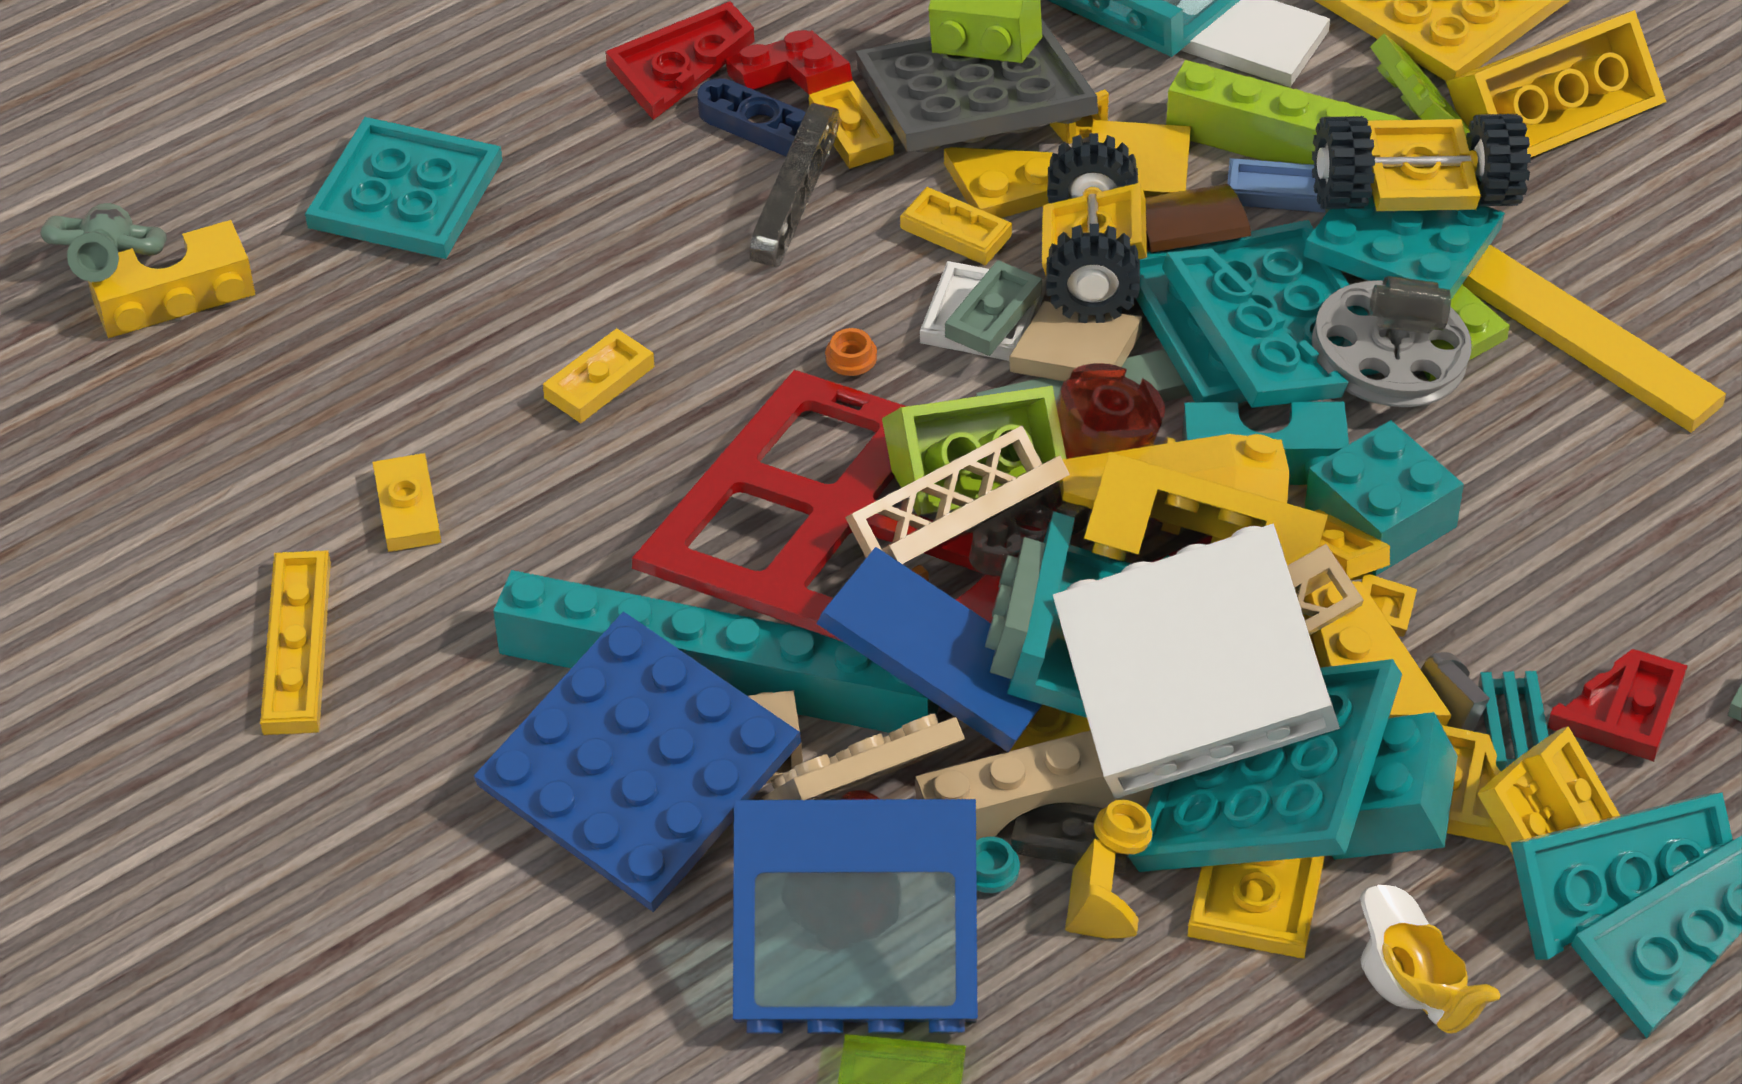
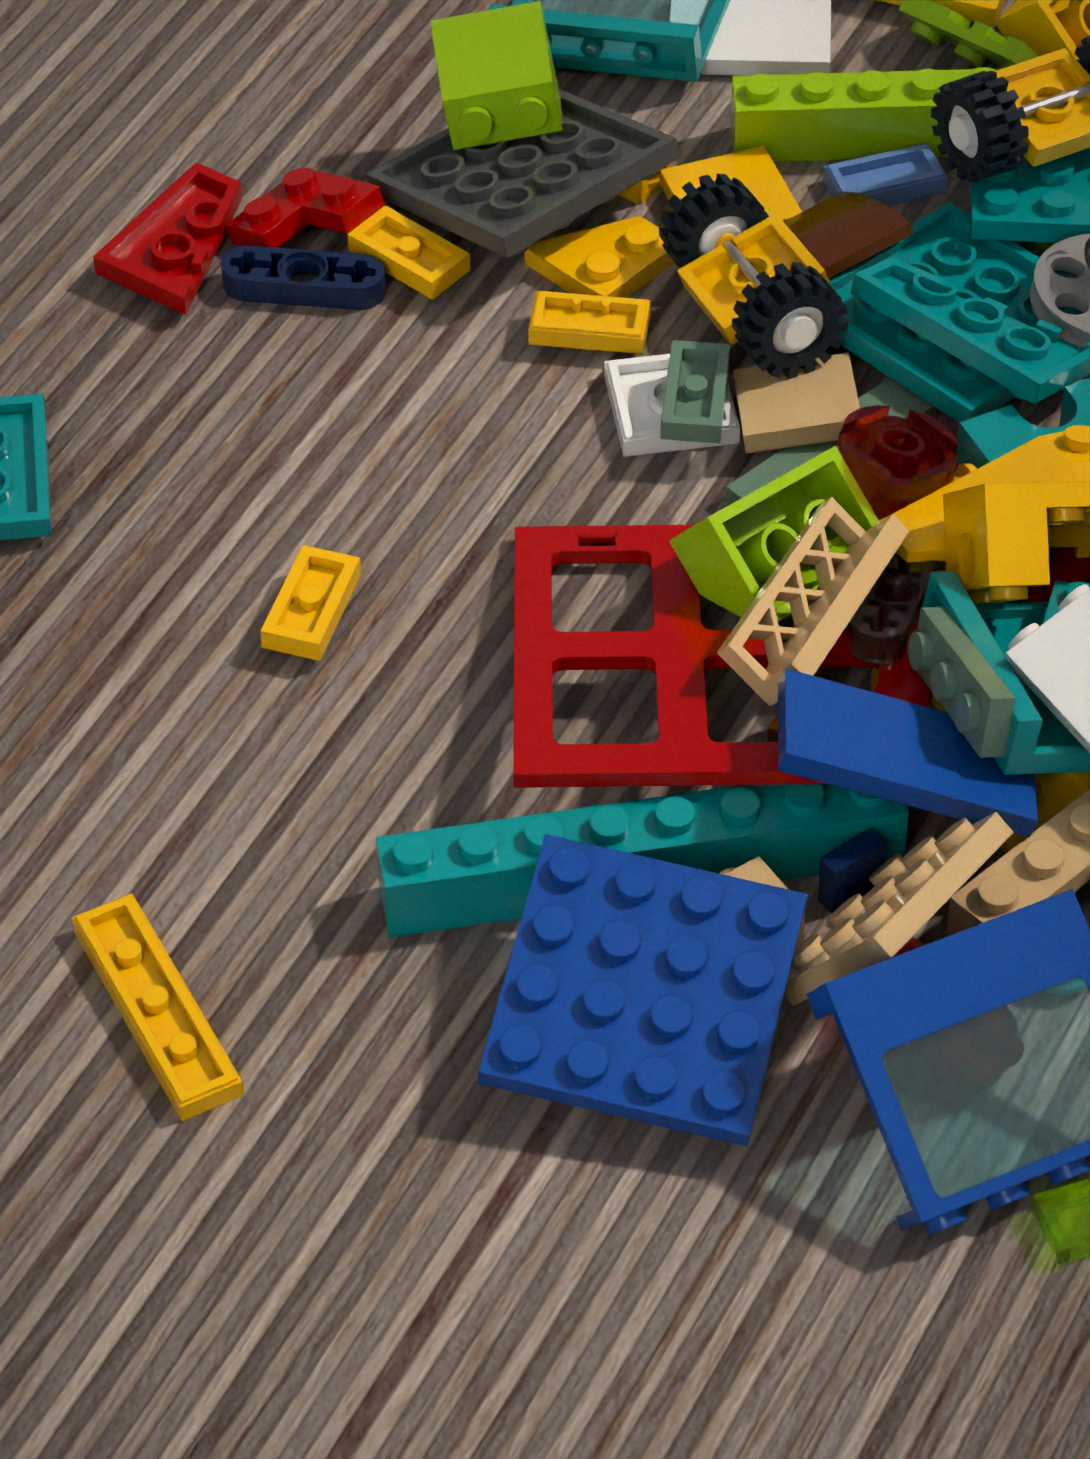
camera: 25 degrees left, 0 degrees up
(406, 502) = (183, 811): yellow plate -> none
(794, 185) = (398, 332): clear smoke beam -> none
(851, 352) = (565, 488): orange plate -> none
(867, 721) = (848, 867): none -> dark blue tile

